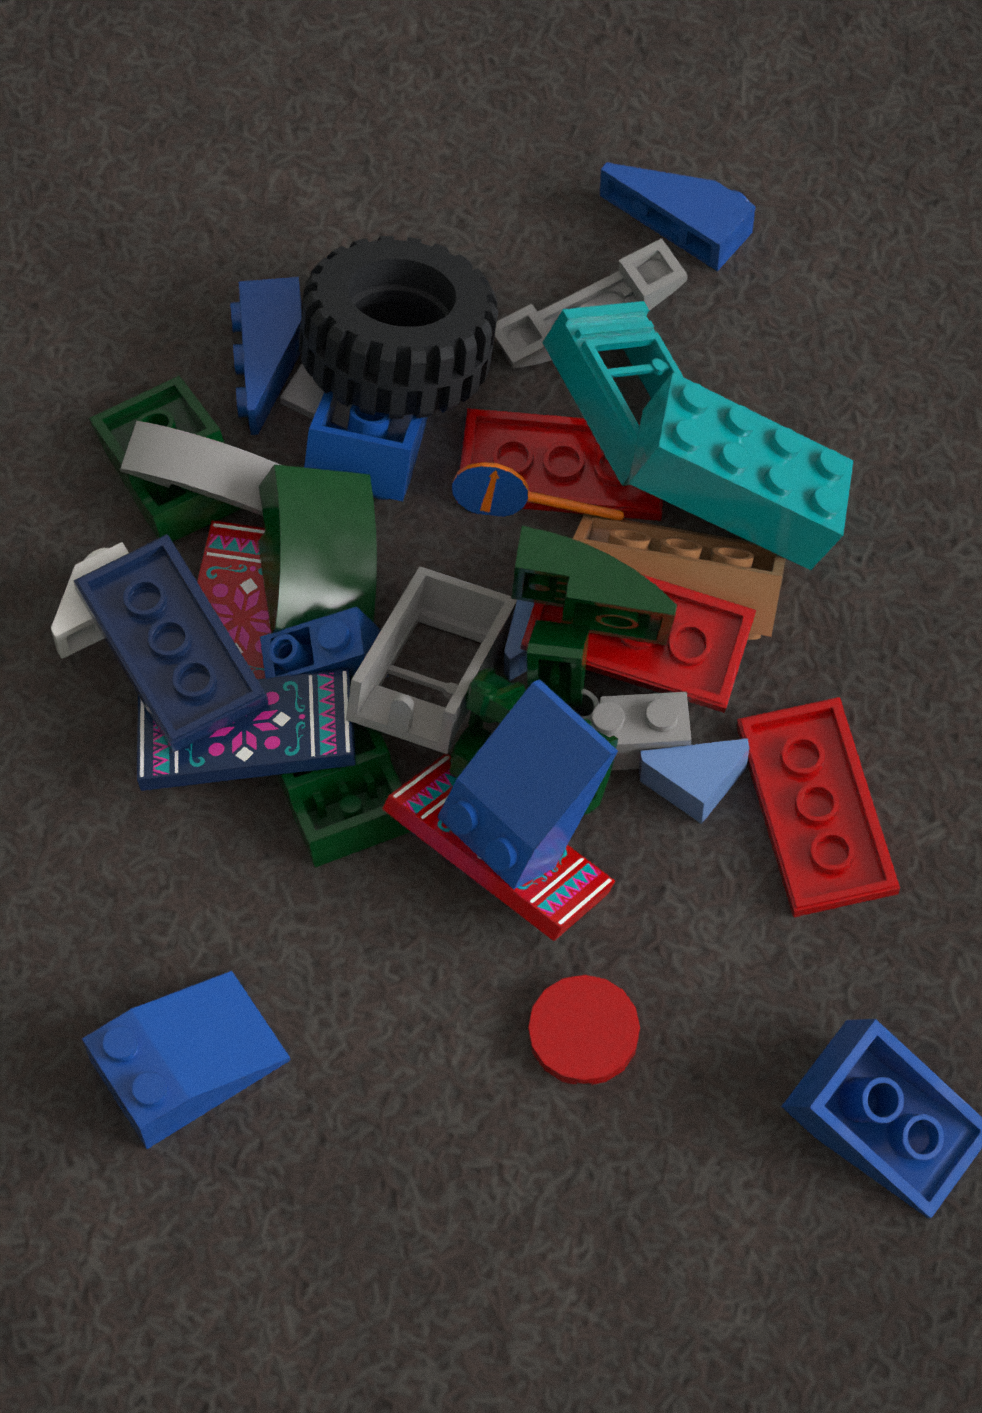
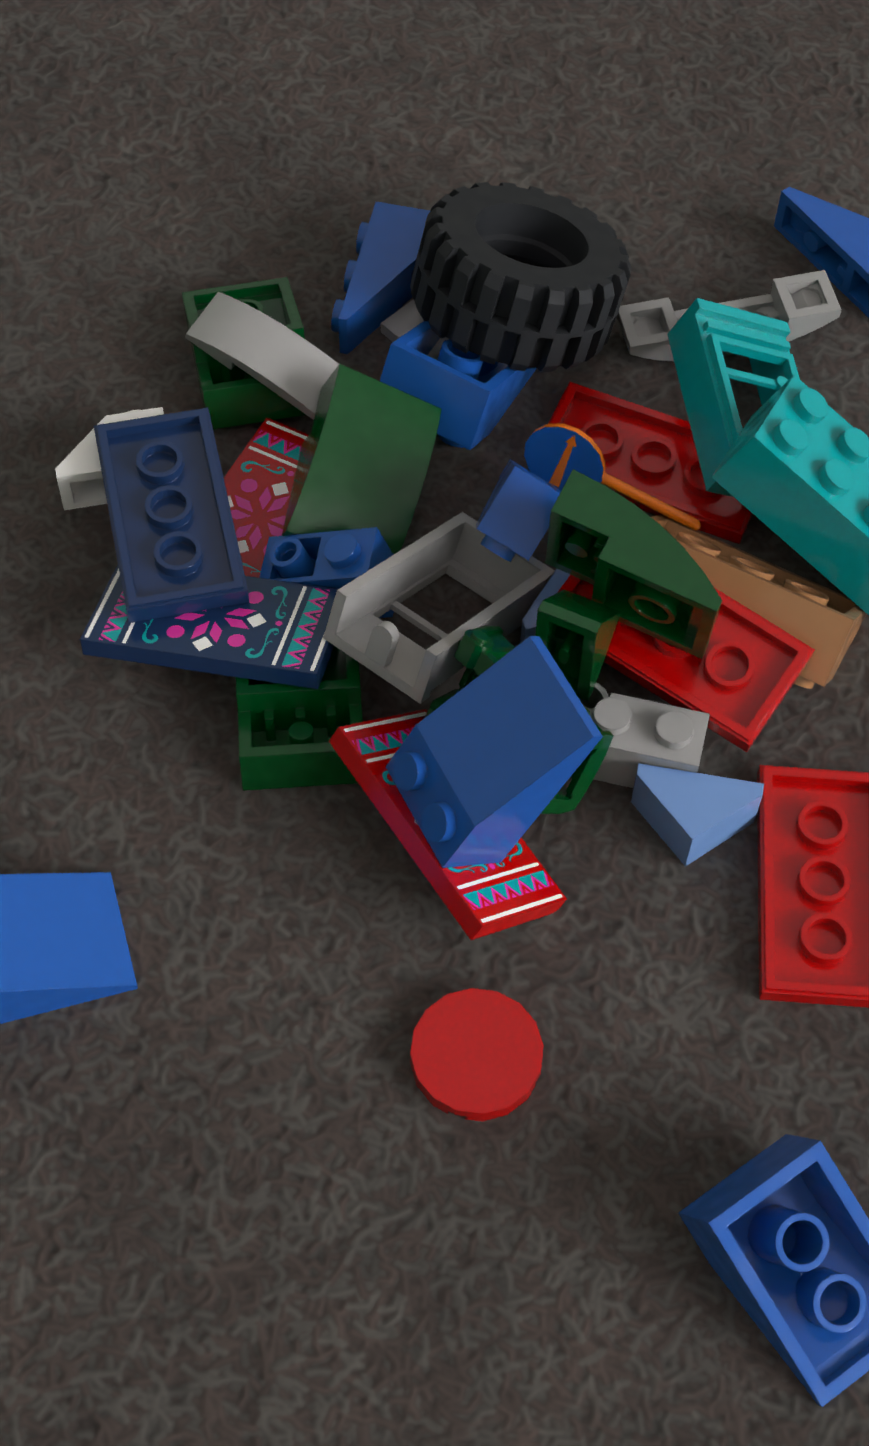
camera: 15 degrees right, 5 degrees down
(471, 553) = (517, 513): none -> blue slope

